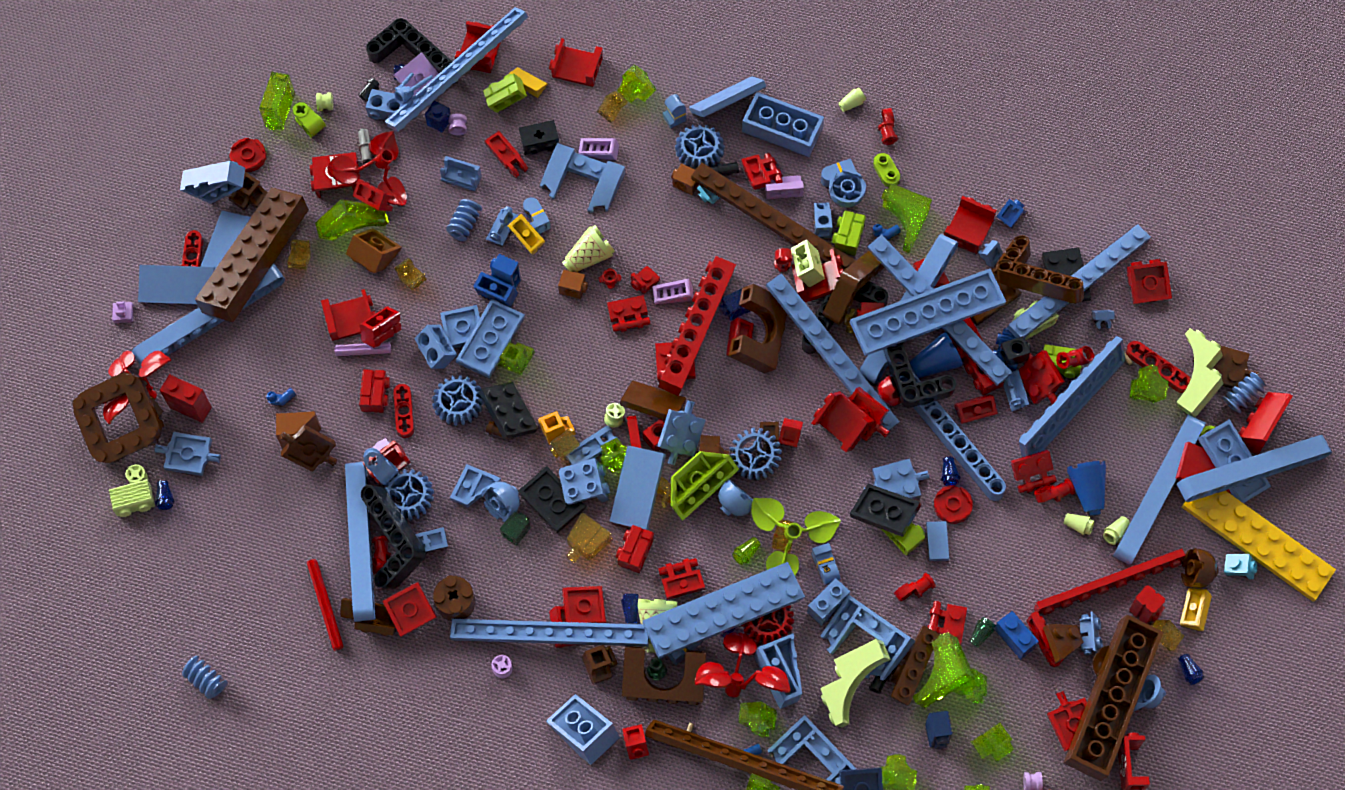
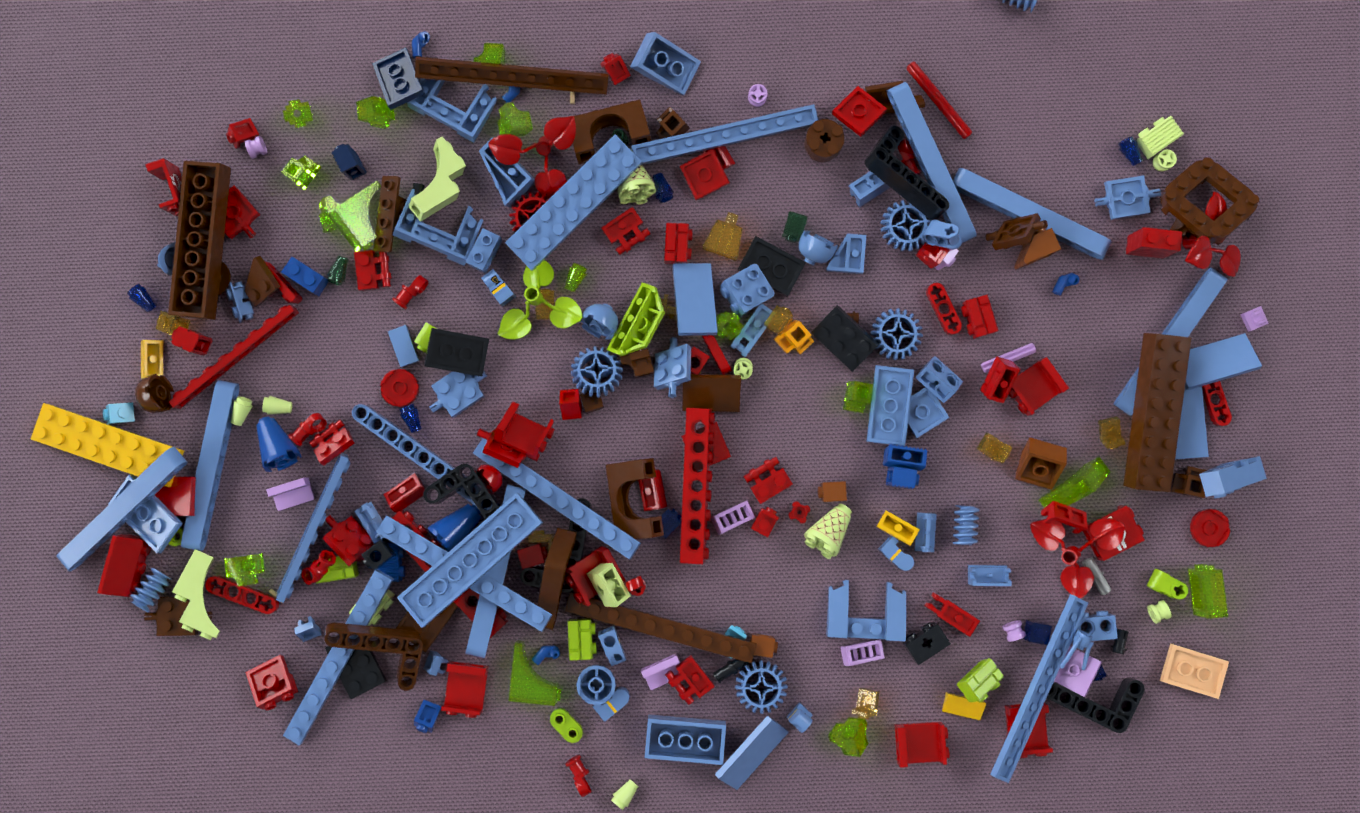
camera: 160 degrees right, 20 degrees up
(285, 469) = (1018, 206): none -> medium blue beam
(316, 48) = (1194, 671): none -> light nougat plate
(1086, 441) = (291, 493): none -> lavender panel

